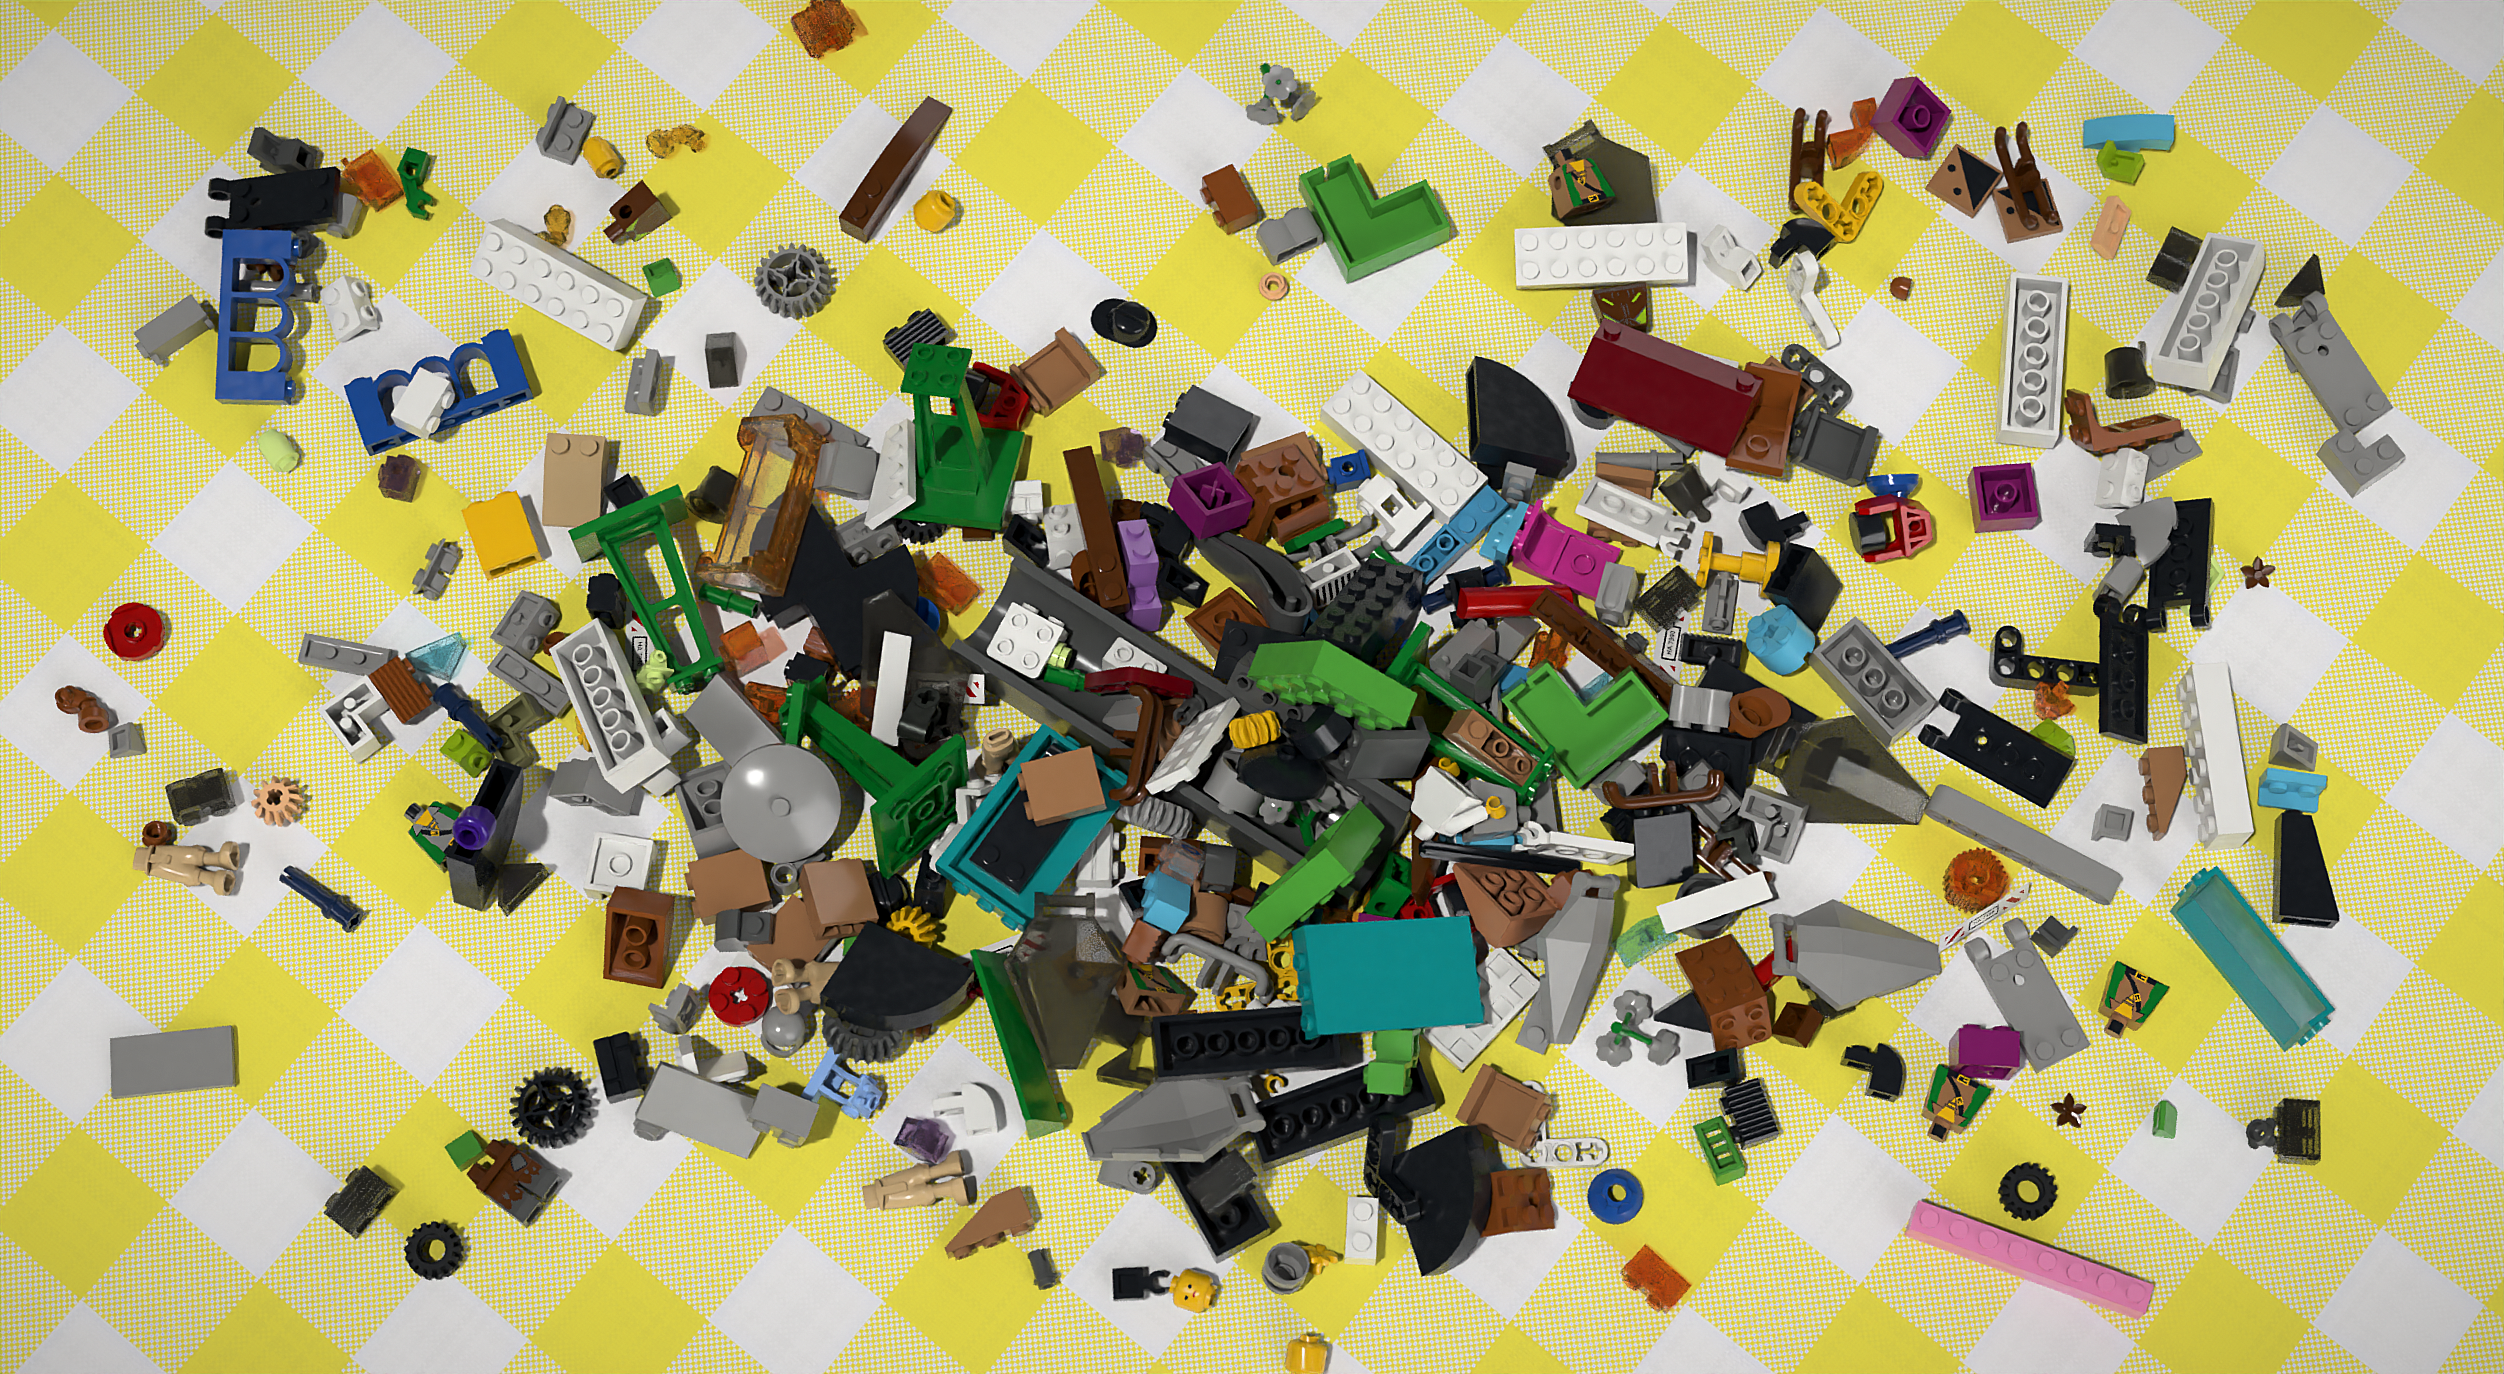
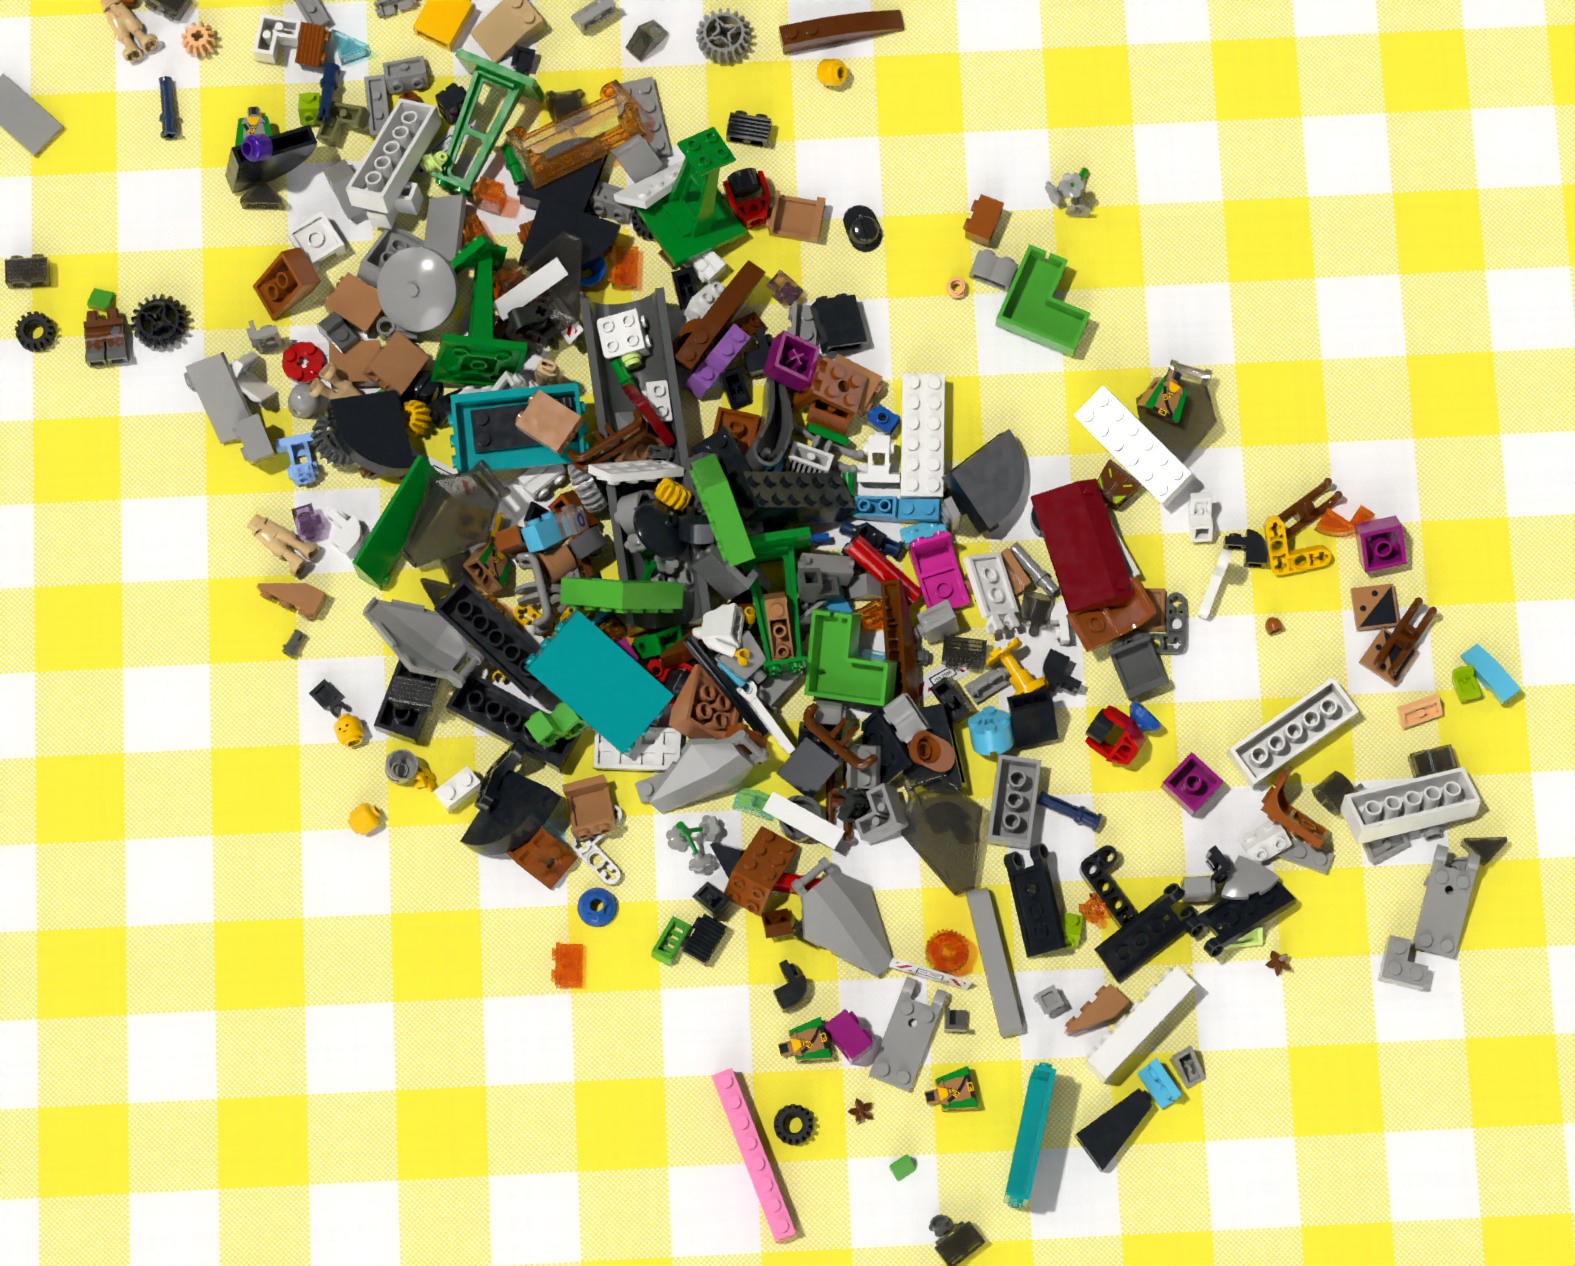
camera: 50 degrees right, 5 degrees up
(619, 1067) = (211, 336): black brick -> none
(806, 668) = (507, 237): black brick -> none
(1124, 1173) = (380, 647): light grey piece -> none

